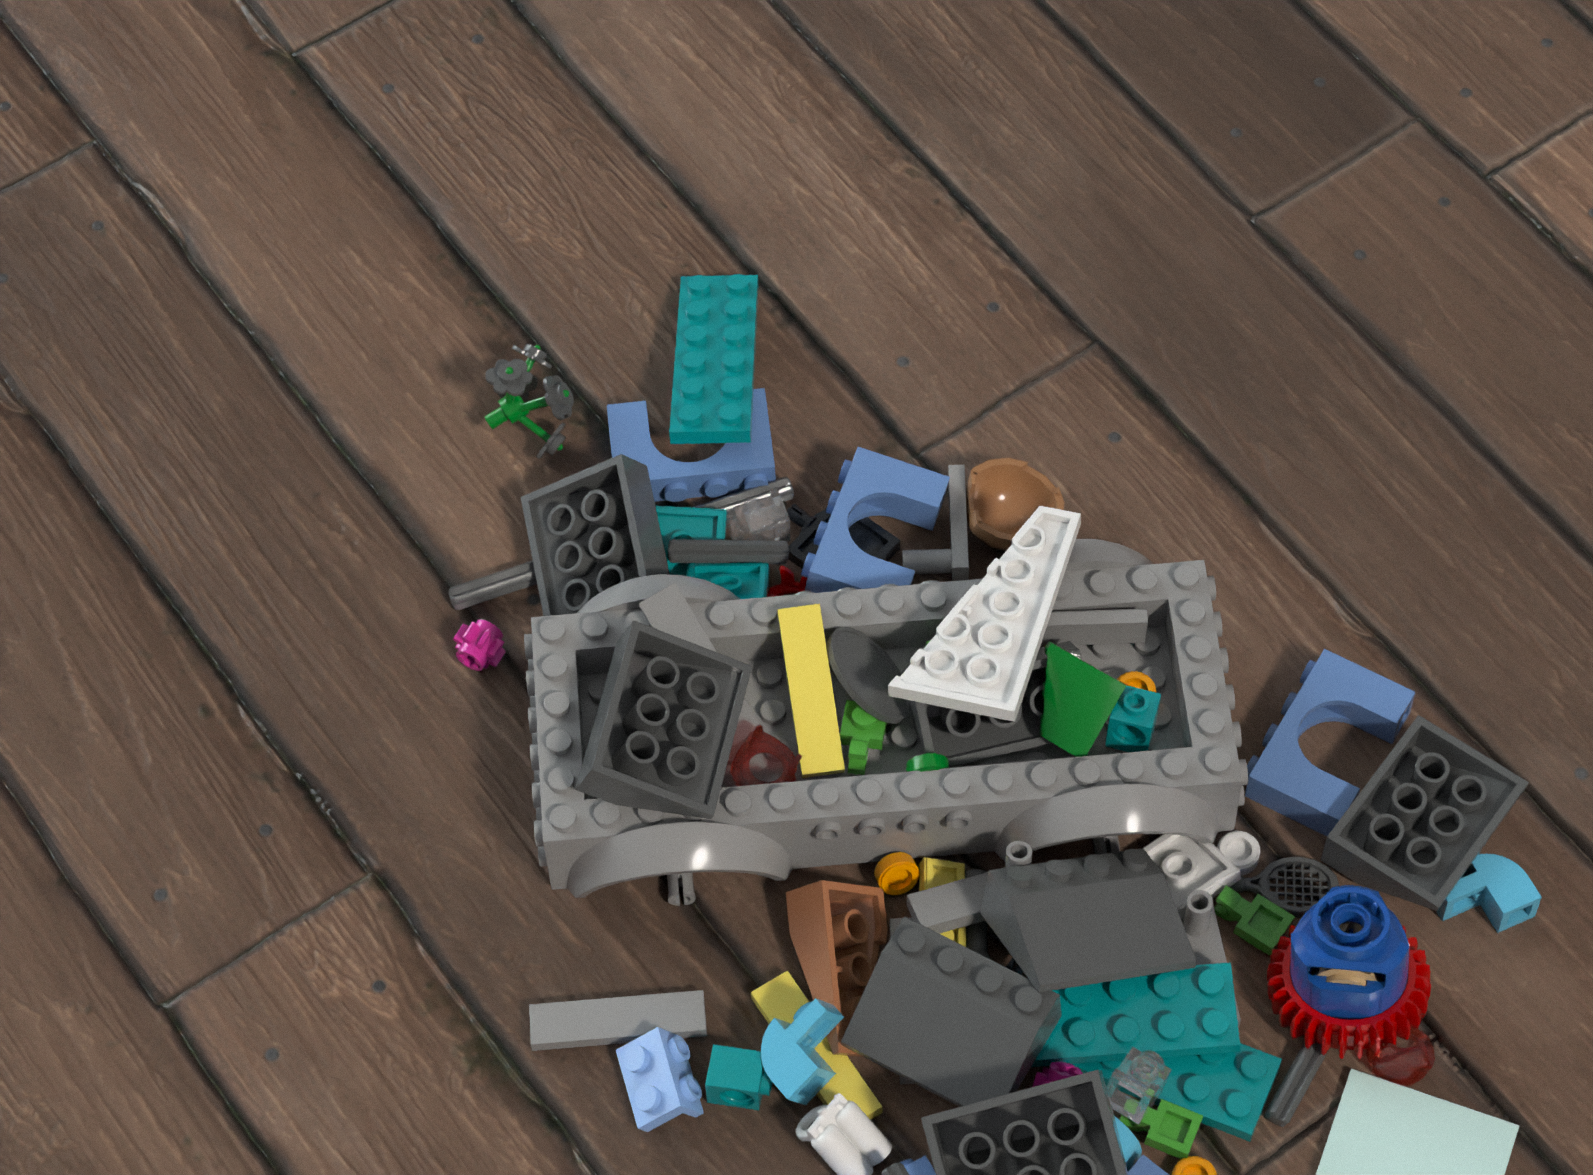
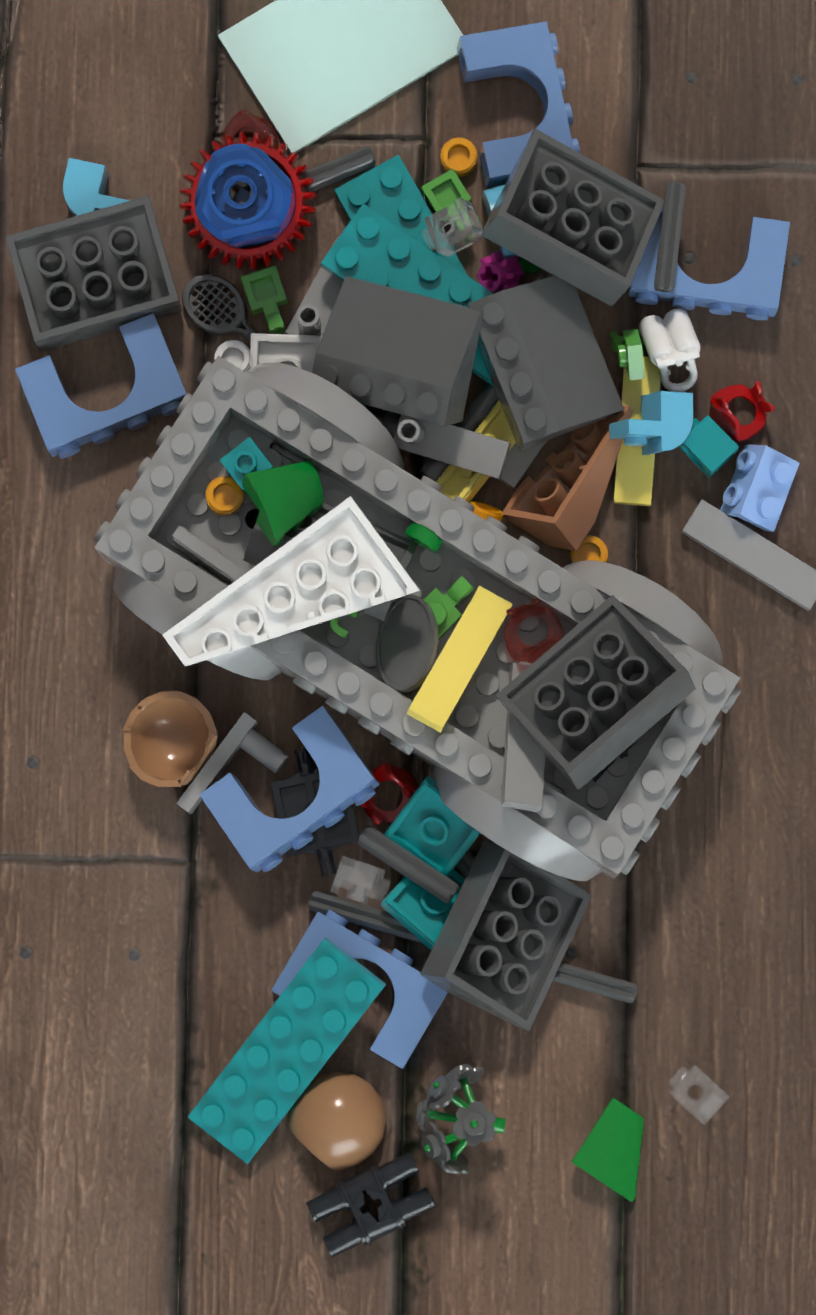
camera: 140 degrees left, 25 degrees up
(337, 555) = (710, 1100): none -> clear brick
(381, 477) = (613, 1149): none -> green slope
(479, 645) = (645, 929): dark pink gear -> none
(556, 310) = (376, 1183): none -> black pin
(631, 351) = (339, 1119): none -> medium nougat cylinder
(753, 1119) = (723, 417): none -> red piece
(771, 915) = (590, 549): none -> light orange tile
(874, 1096) = (629, 352): none -> bright green plate

